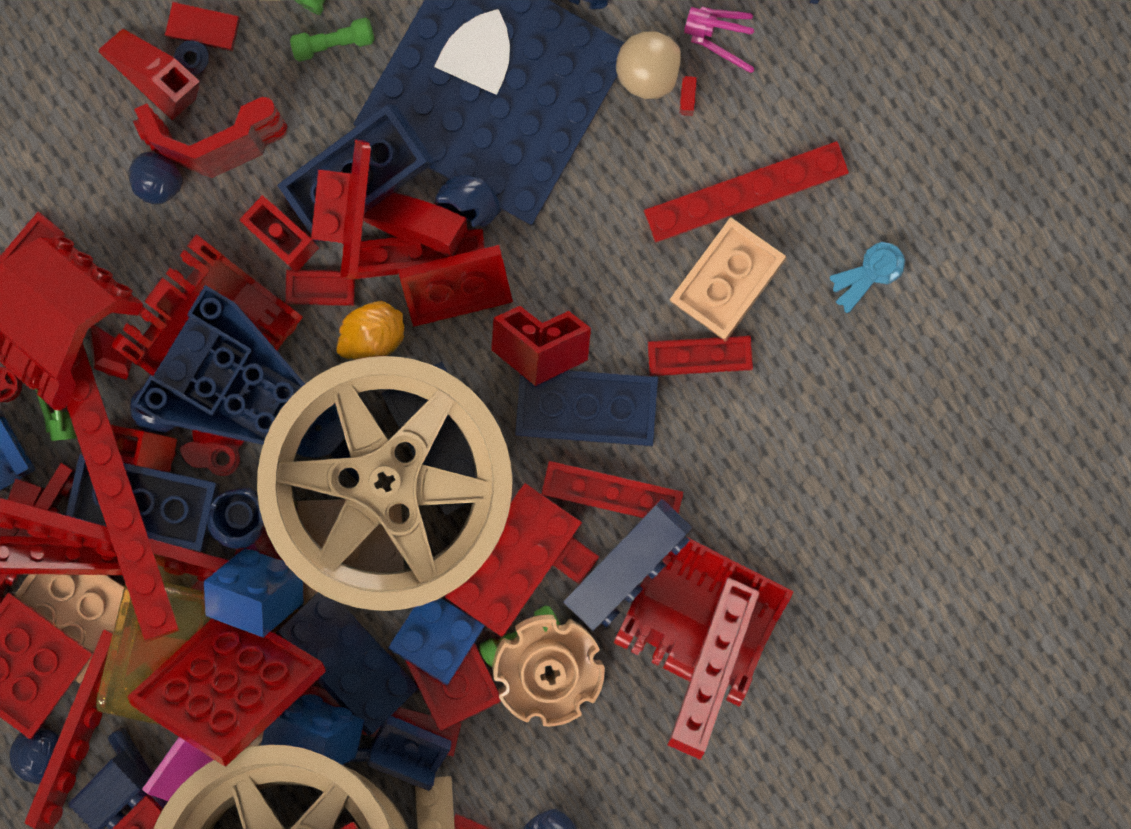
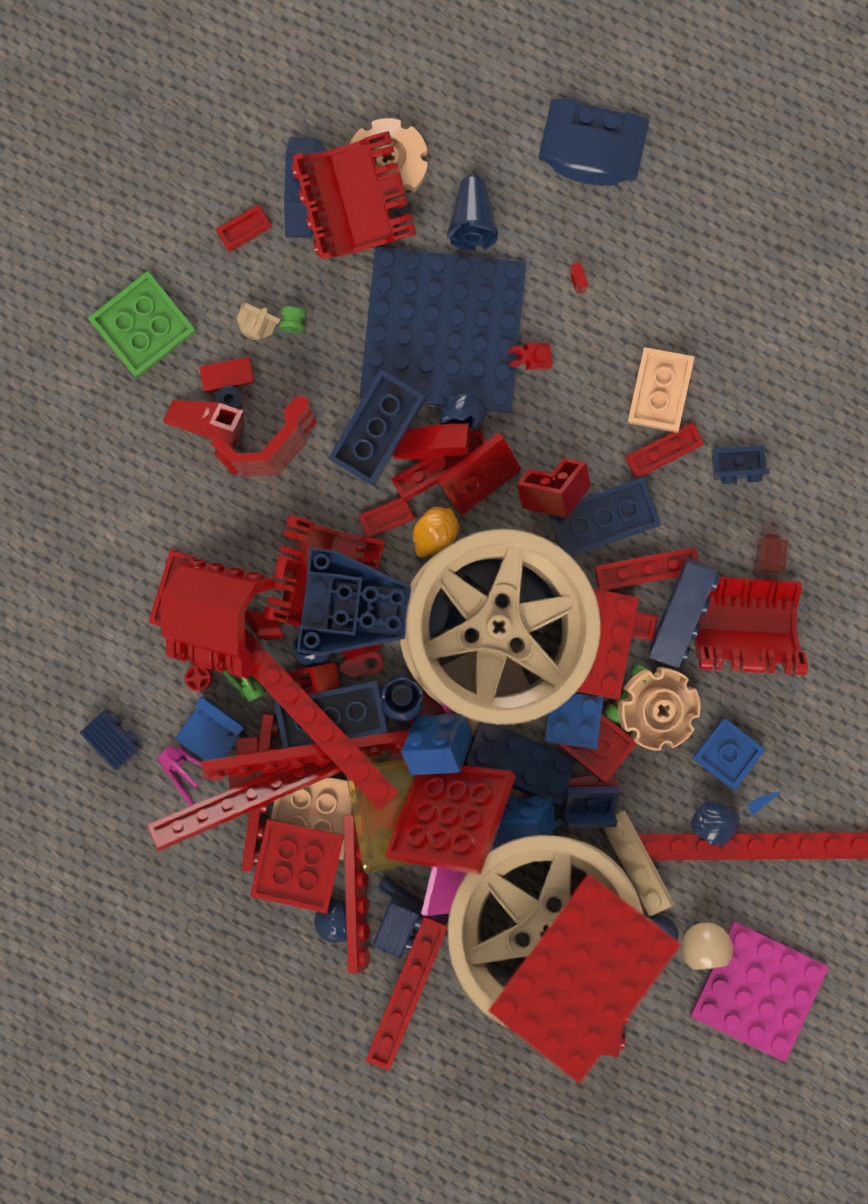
camera: 30 degrees left, 0 degrees up
(154, 178) = (240, 491): dark blue piece -> none
(279, 233) = (343, 491): red brick -> none
(305, 46) = (336, 332): bright green piece -> none
(341, 208) = (382, 452): red plate -> none
(478, 52) = (423, 309): white sticker -> none
(590, 168) = (534, 355): none -> red plate
(610, 764) = (728, 754): none -> blue plate
(648, 64) = (544, 267): tan helmet -> none
(703, 22) = (566, 224): dark pink plant -> none
(713, 669) = (780, 657): plate -> none
(746, 192) = (645, 326): red plate -> none
(773, 541) = (771, 554): none -> clear red brick
(784, 412) = (739, 463): none -> dark blue bracket
(881, 264) = (758, 335): dark azure piece -> none

